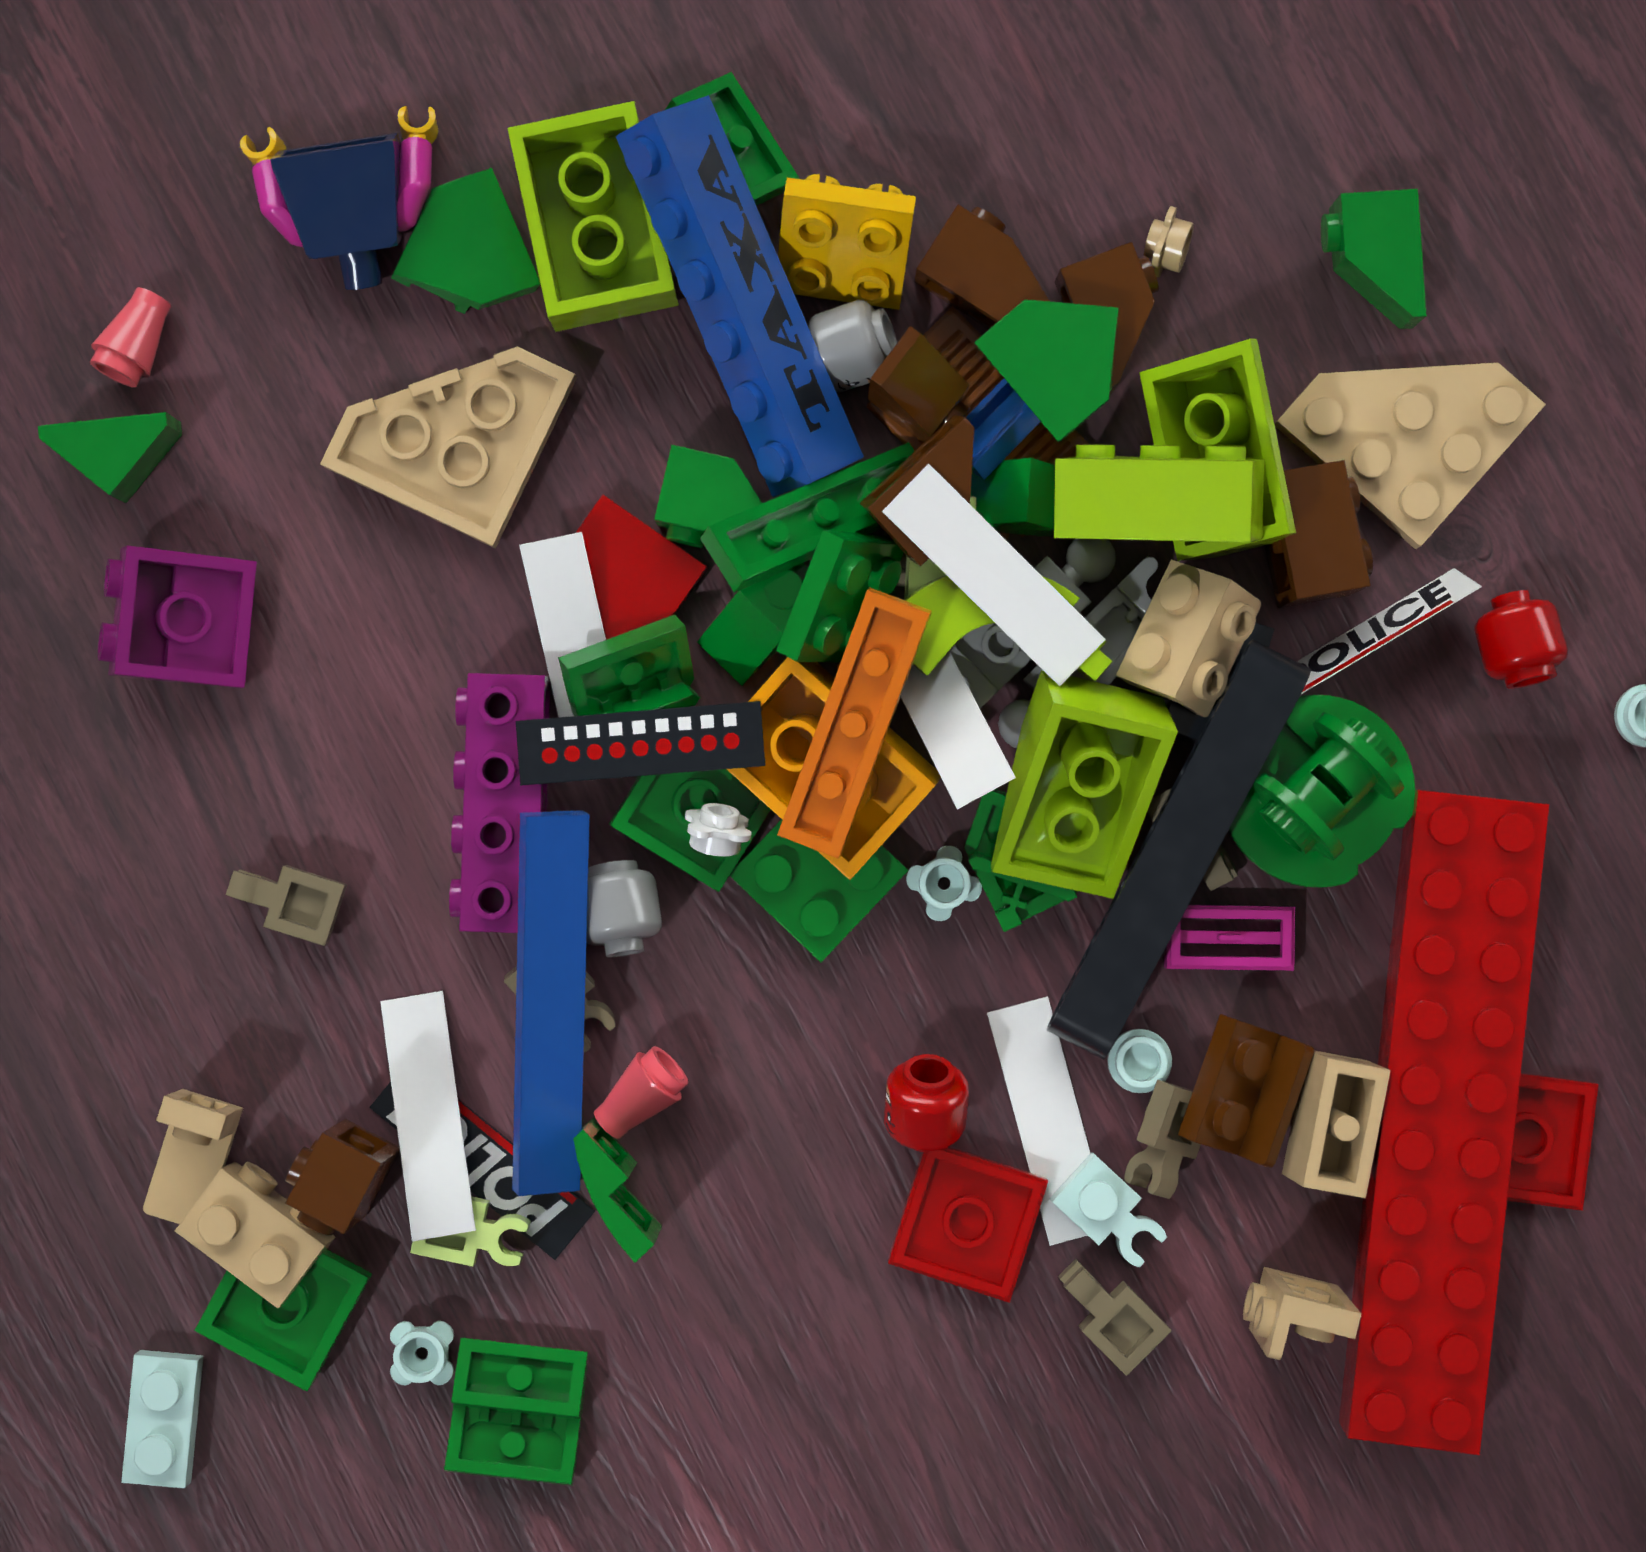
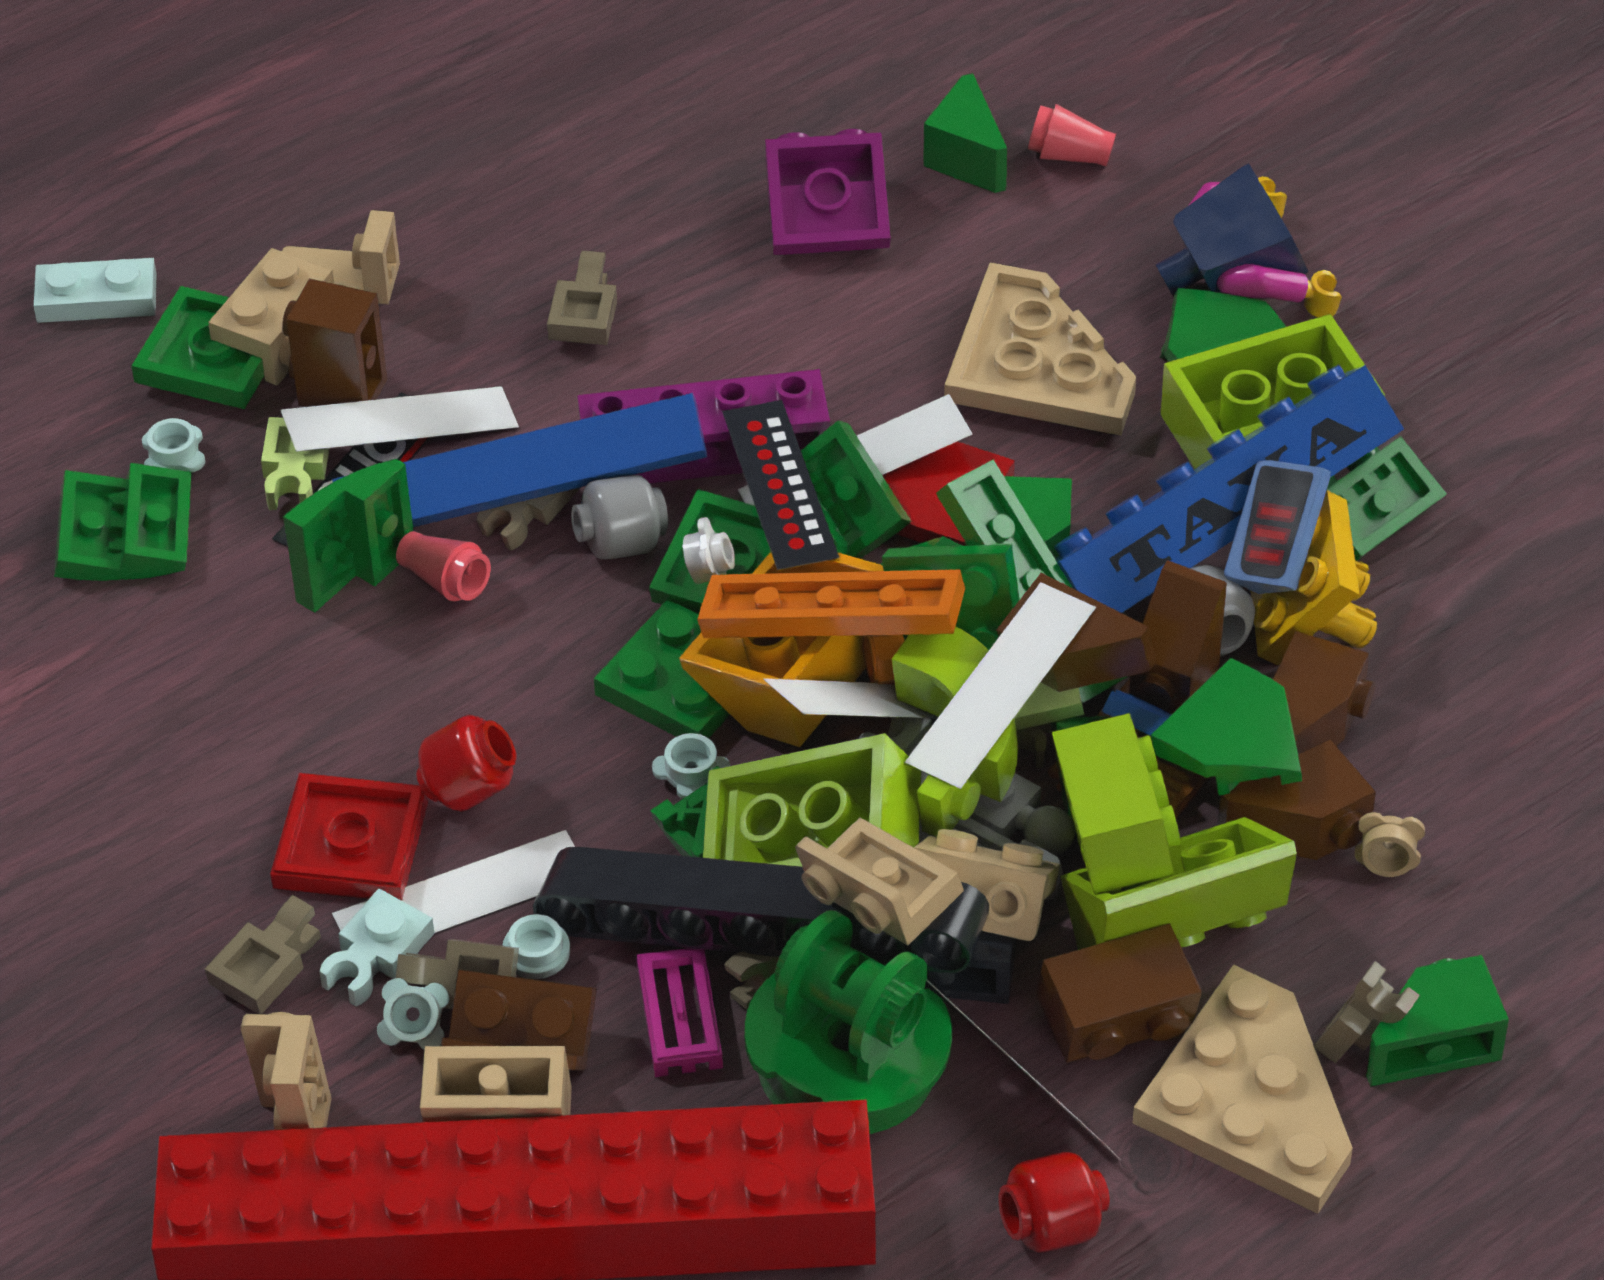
camera: 80 degrees right, 40 degrees down
(812, 254) = (1276, 526): none -> slope
(1204, 1185) = (402, 997): none -> light aqua plate
(1246, 743) = (879, 880): none -> tan bracket
(1369, 323) = (1363, 1012): none -> dark tan plate

